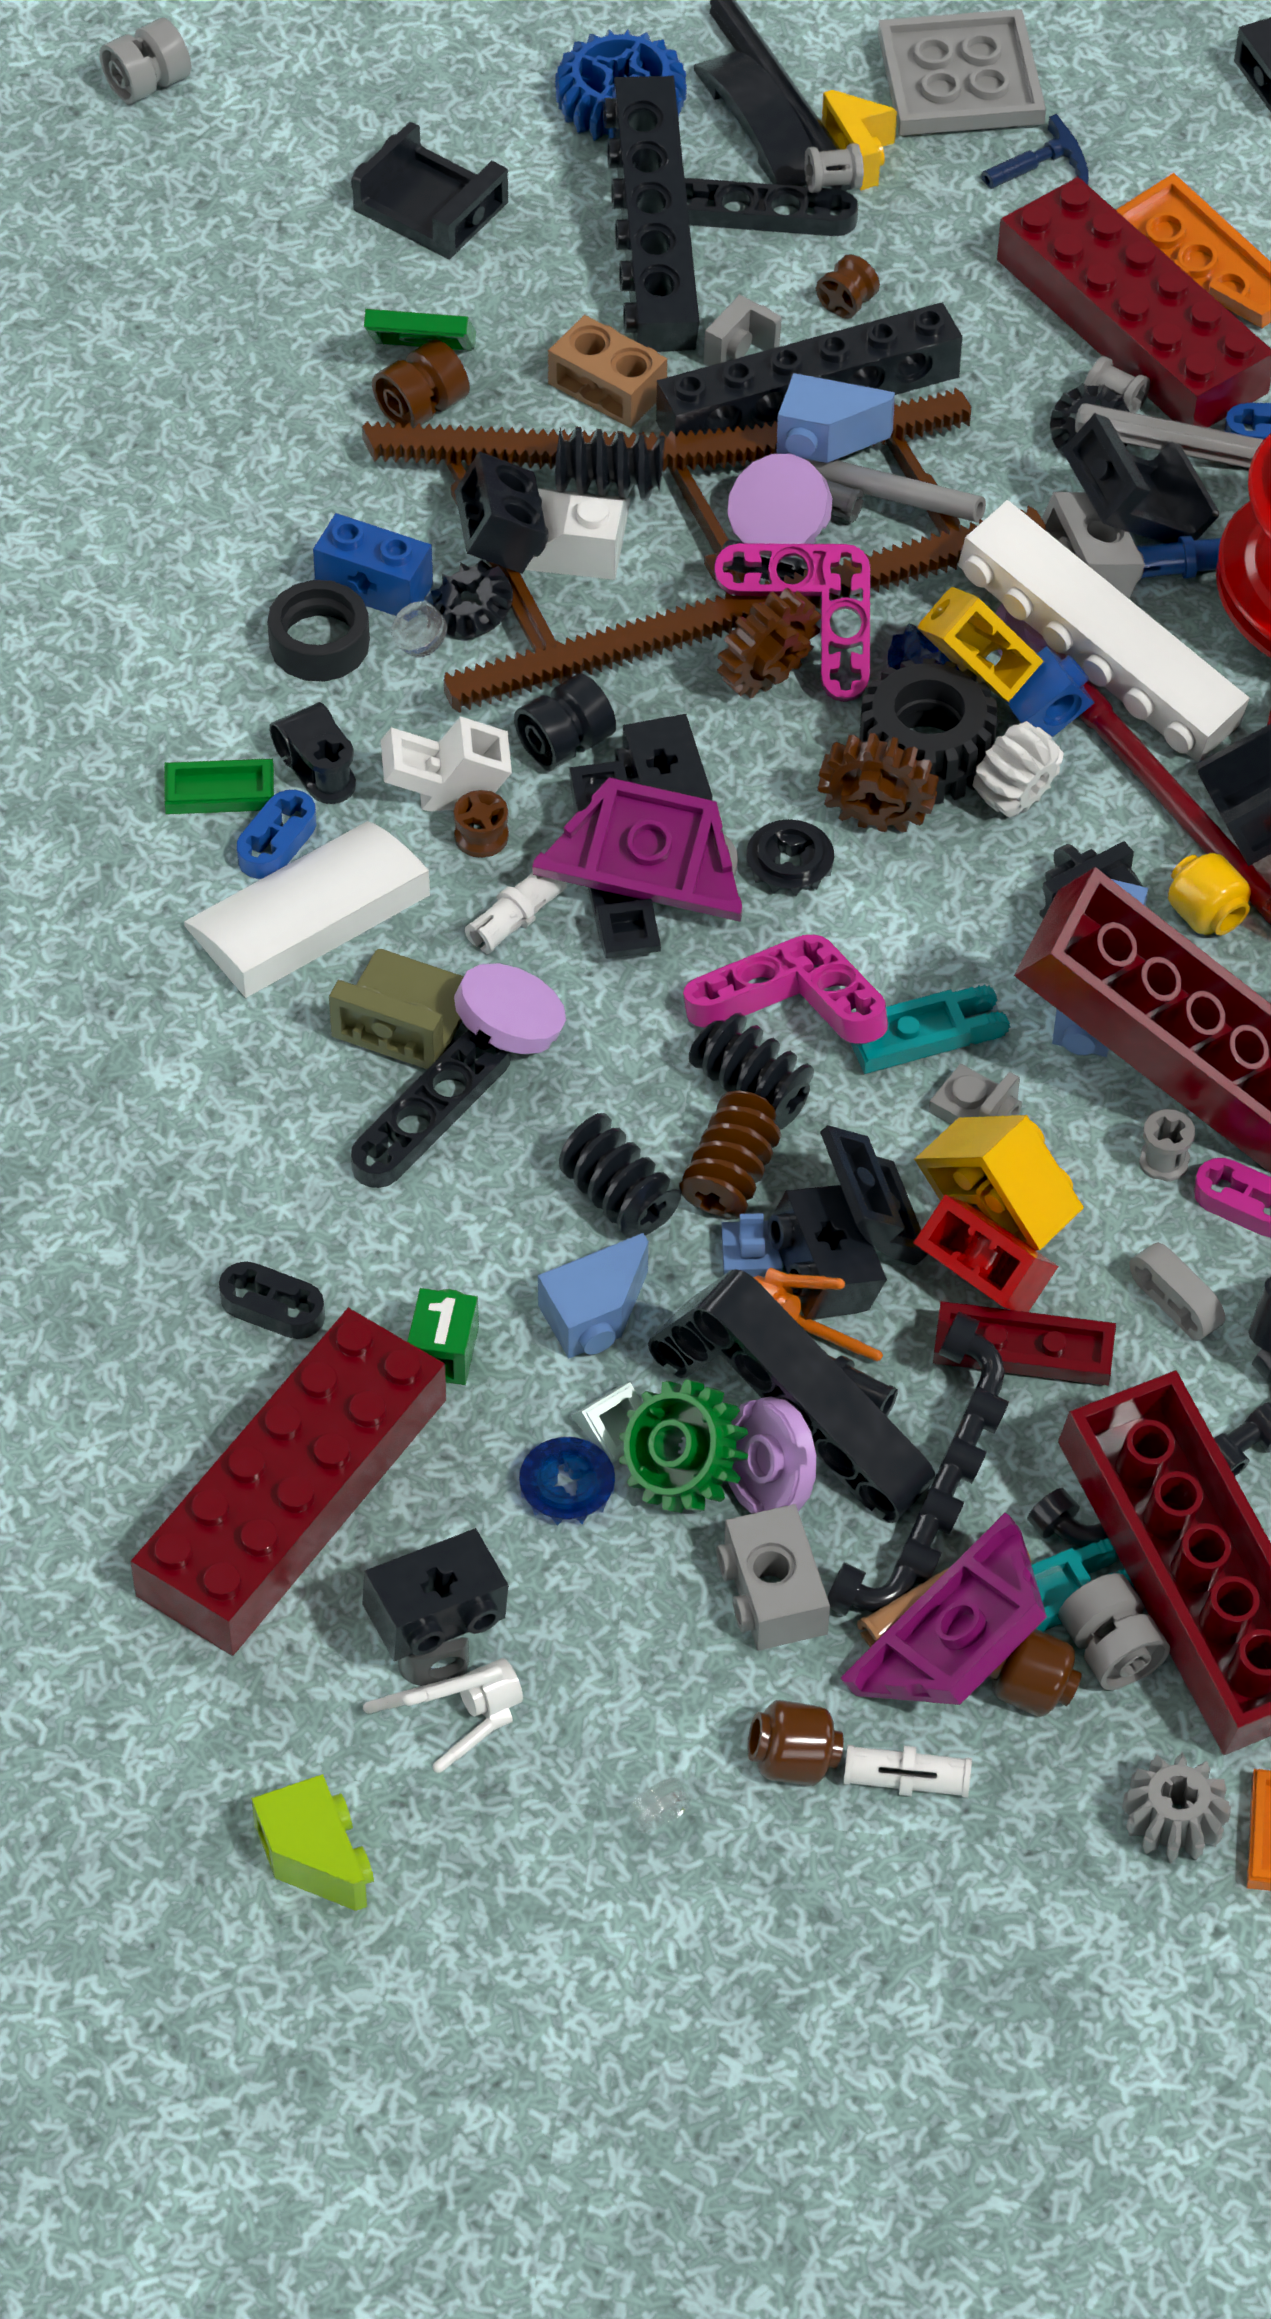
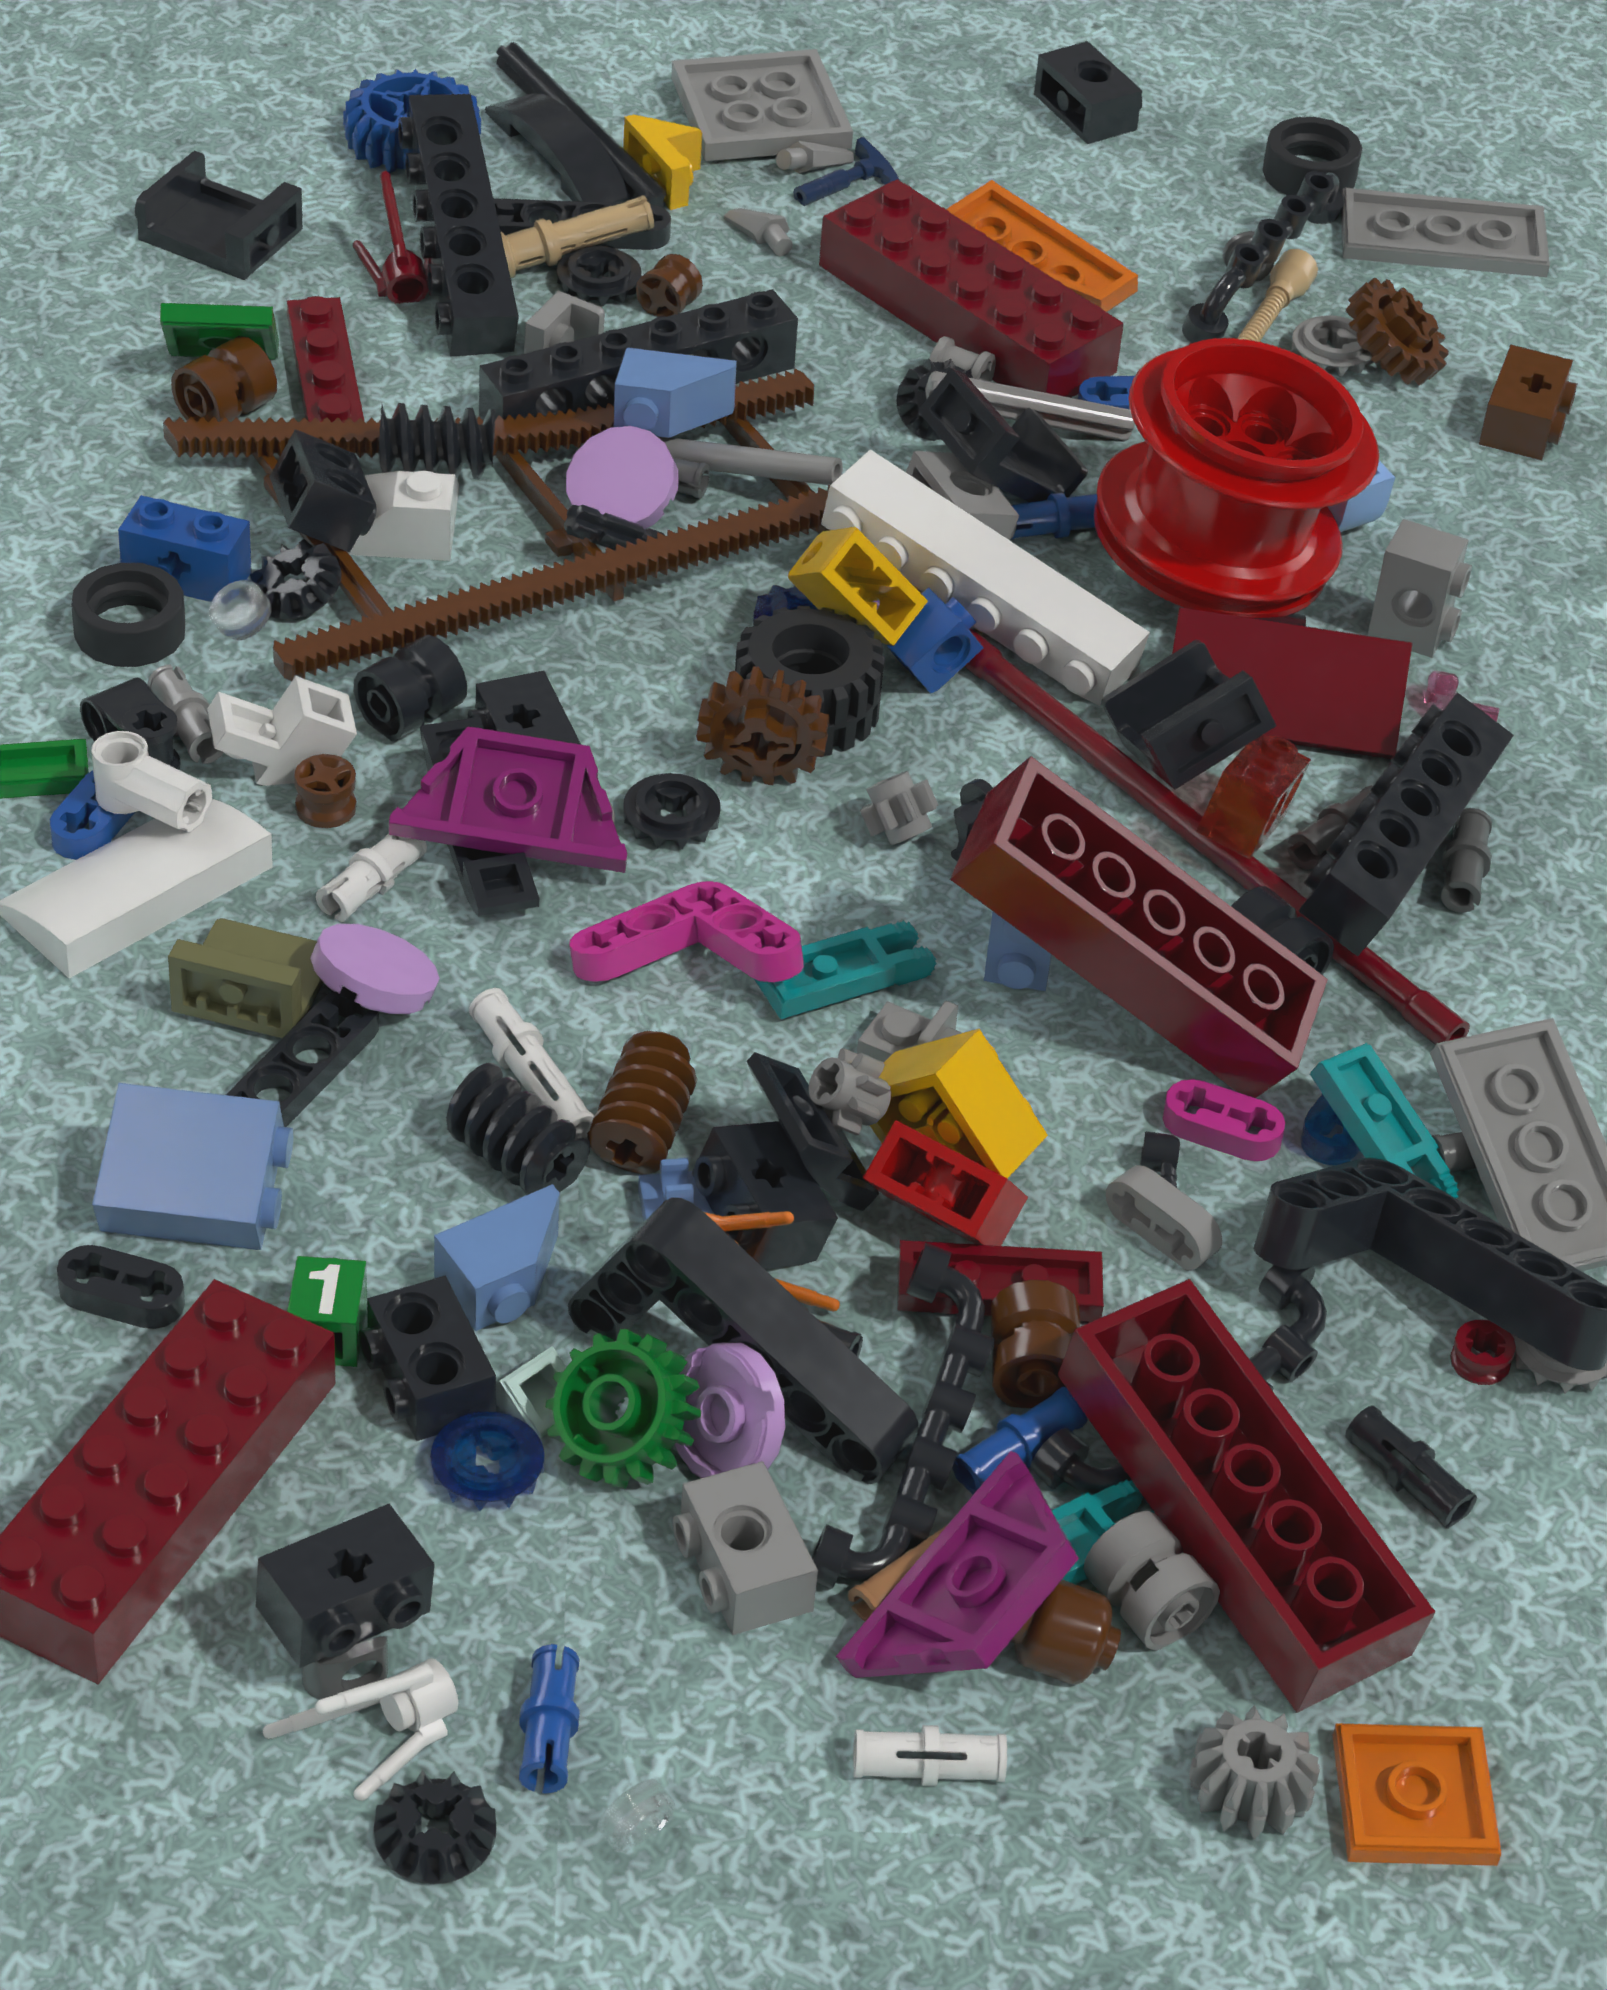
camera: 10 degrees left, 10 degrees down
(309, 1844) = (209, 1891): lime slope -> none
(315, 814) = (133, 782): none -> white piece
(338, 1195) = (192, 1166): none -> medium blue brick
(363, 733) = (190, 710): none -> light grey pin
(491, 1825) = (434, 1855): none -> black gear
(516, 359) = (323, 359): none -> dark red plate
(533, 1385) = (428, 1357): none -> black brick
(596, 1715) = (549, 1719): none -> blue pin
(598, 261) = (403, 273): none -> dark red plant
(606, 370) = (421, 366): medium nougat brick -> none
(619, 1071) = (498, 1021): none -> white pin
(739, 230) = (549, 240): none -> tan pin
(743, 1065) = (638, 1001): black piece -> none
(769, 643) = (627, 600): reddish brown gear -> none
(776, 253) = (581, 271): none -> black gear
(794, 1742) = (792, 1731): reddish brown head -> none
(816, 583) = (675, 540): dark pink beam -> none
(850, 160) = (646, 179): light grey bush -> none
(910, 1161) = (850, 1090): none -> light grey gear
(946, 217) = (762, 228): none -> light grey bar
(995, 868) = (899, 807): none -> light grey gear
(1001, 134) = (810, 156): none -> light grey bar
(1018, 769) = (911, 710): white gear -> none
(1019, 1493) = (1020, 1435): none -> blue pin
(1040, 1398) = (1031, 1336): none -> reddish brown wheel
(1167, 1140) = (1129, 1060): light grey bush -> none
(1185, 1229) = (1161, 1155): none -> black hand
(1209, 894) = (1142, 812): yellow head -> none

